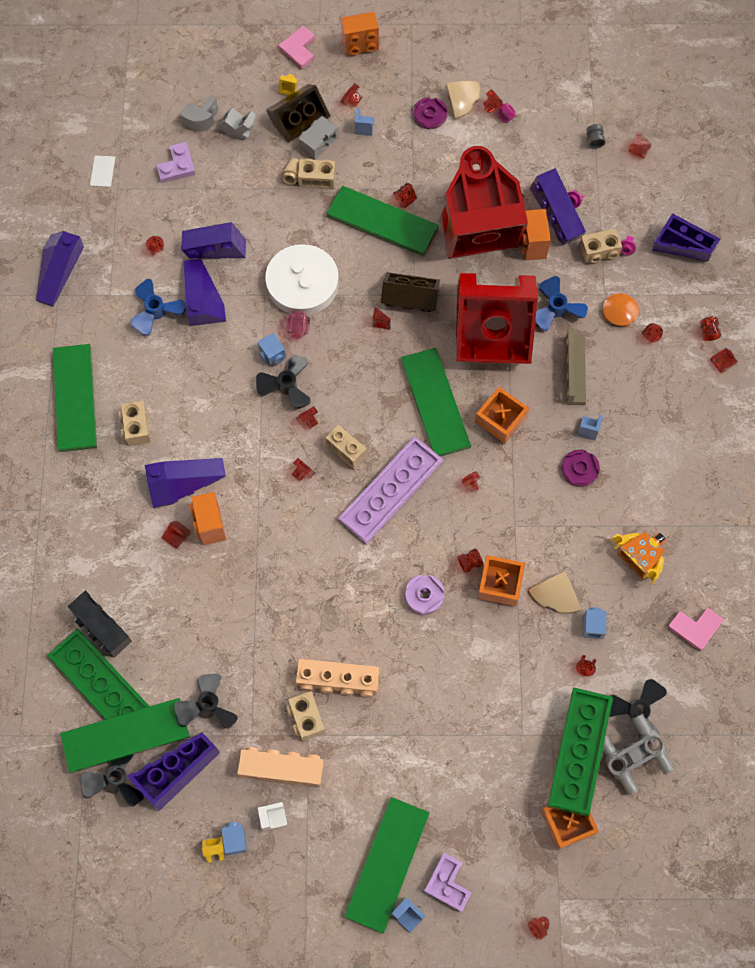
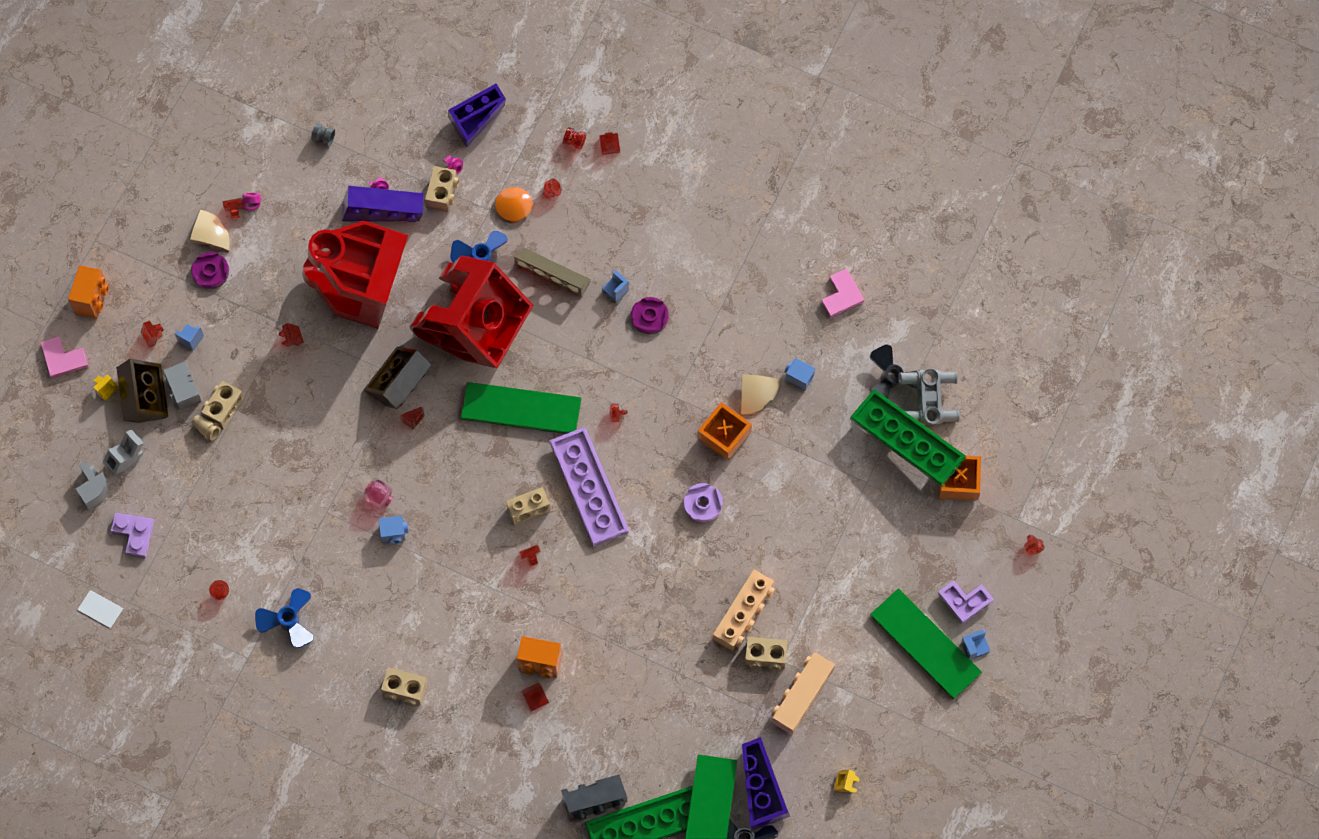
camera: 65 degrees left, 0 degrees up
(57, 264) = (183, 691): dark purple wedge -> none
(74, 398) = (344, 734): green tile -> none
(176, 479) = (482, 671): dark purple wedge -> none
(187, 711) = (697, 727): black piece -> none
(201, 295) = (300, 571): dark purple wedge -> none
(214, 242) = (247, 534): dark purple wedge -> none
(234, 838) = (845, 759): medium blue brick -> none
(268, 383) = (426, 547): black piece -> none
(272, 816) = (840, 721): white panel -> none
(302, 279) = (331, 469): white brick -> none
(308, 417) = (479, 526): clear red tile -> none
(382, 220) = (305, 368): green tile -> none
(470, 560) = (691, 449): clear red wheel -> none
(501, 415) = (568, 355): orange brick -> none
(536, 236) = (415, 239): orange brick -> none
(586, 667) = (834, 401): clear red plate -> none
(640, 146) = (354, 101): clear red slope -> none
(642, 553) = (757, 303): torso -> none

